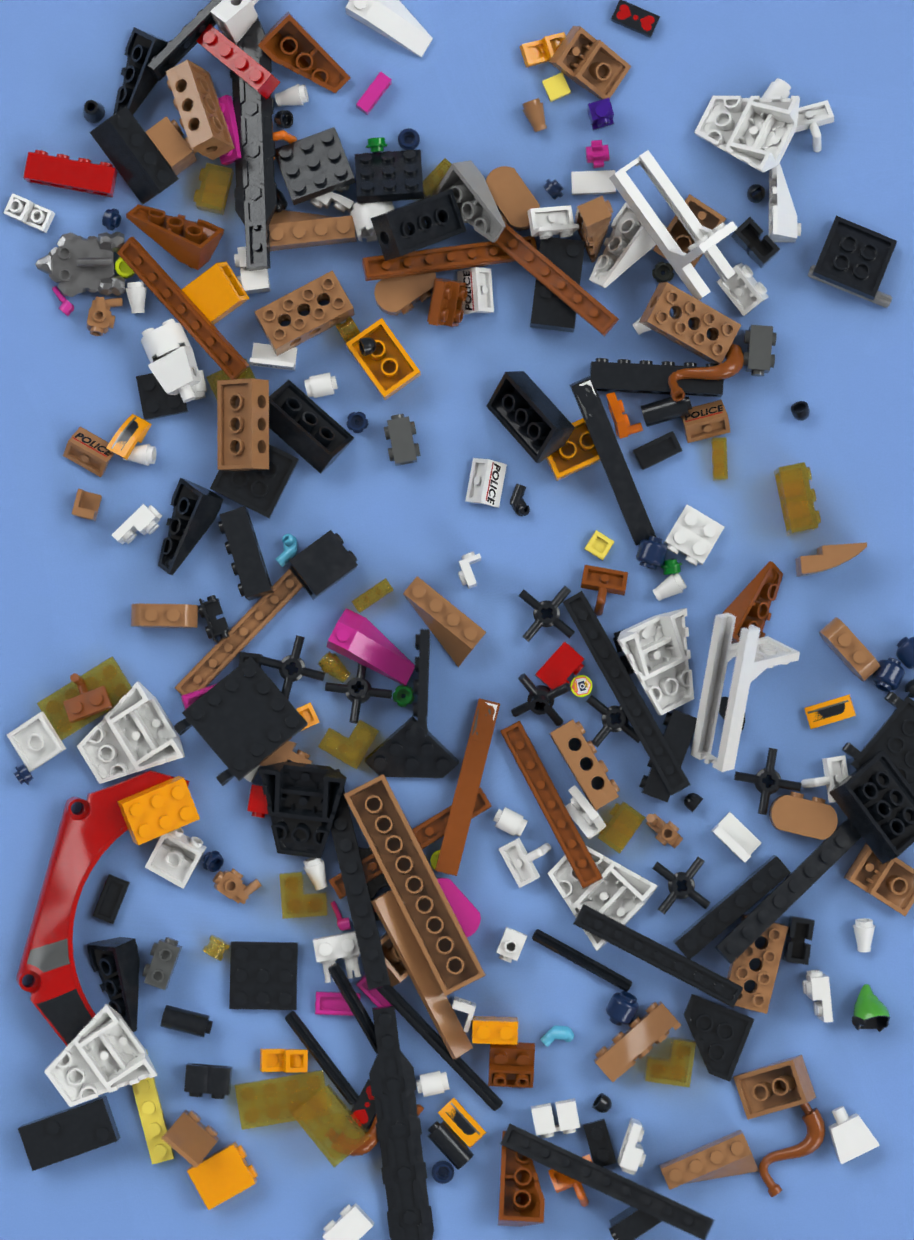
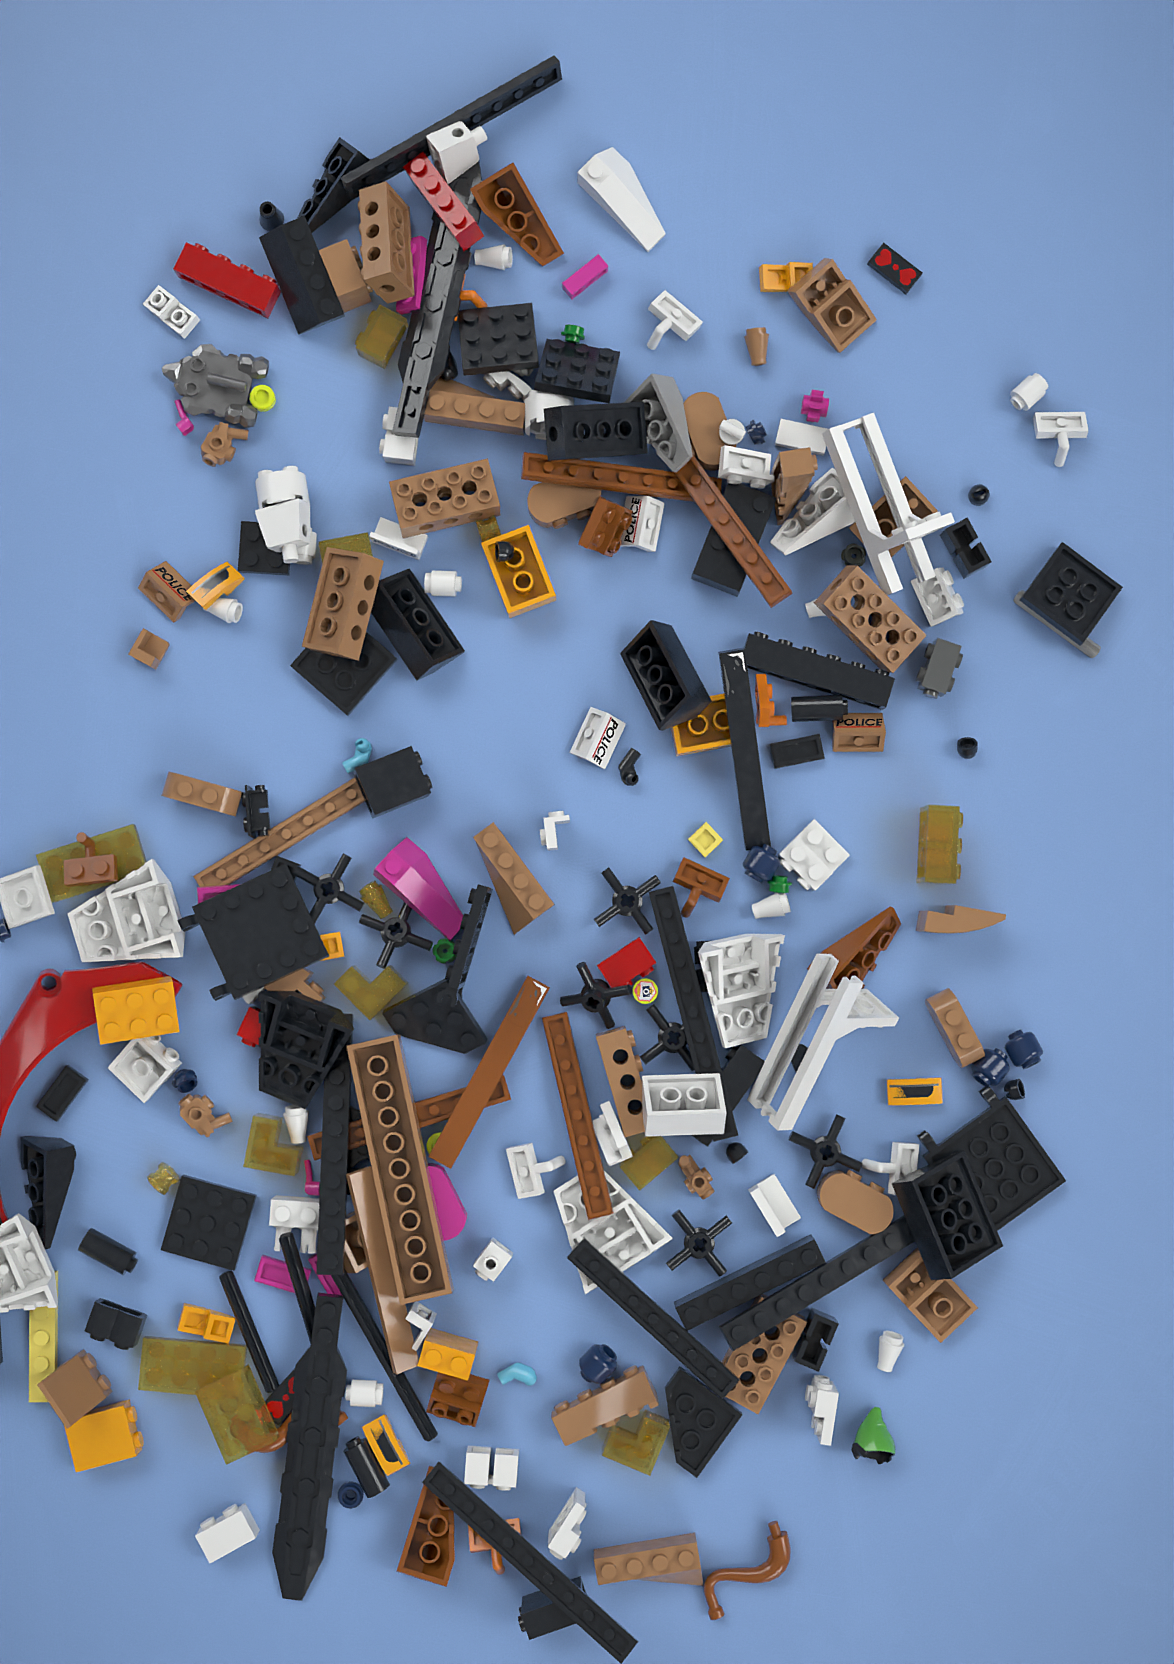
camera: 10 degrees right, 0 degrees up
(111, 219) = (259, 341): dark blue plate -> none
(136, 295) = (265, 432): white cone -> none
(143, 520) = (204, 681): white plate -> none
(164, 959) = (101, 1177): dark grey brick -> none
(183, 308) = (311, 459): dark orange tile -> none
(184, 239) = (333, 384): dark orange wedge -> none
(191, 517) = (263, 691): black wedge -> none
(216, 292) = (349, 452): light orange brick -> none
(246, 553) = (310, 748): black brick -> none
(283, 121) = (479, 283): black hinge -> none
(363, 422) = (468, 628): dark blue plate -> none
(372, 595) = (439, 831): clear yellow piece -> none
(400, 433) = (516, 663): dark grey brick -> none
(408, 133) = (610, 330): dark blue plate -> none
(435, 177) = (624, 389): clear yellow piece -> none
(458, 108) = (673, 316): none -> white plate
(510, 821) = (526, 1122): white brick -> none
(532, 195) = (731, 431): none -> white plate
(556, 87) = (788, 321): light yellow tile -> none
(582, 960) = (565, 1296): black axle -> none
(599, 1143) = (533, 1508): black plate -> none
(600, 113) = (829, 362): dark purple brick -> none
(602, 1103) = (548, 1464): black hinge -> none
(637, 770) = (683, 1104): none -> white slope
(719, 459) = (863, 778): clear yellow piece -> none
(727, 369) = (903, 679): dark orange animal -> none
(751, 127) = (993, 419): white wedge -> none
(774, 1087) = (746, 1497): medium nougat slope -> none
(782, 214) = (1002, 525): white wedge -> none
(850, 1135) = (816, 1574): white torso -> none

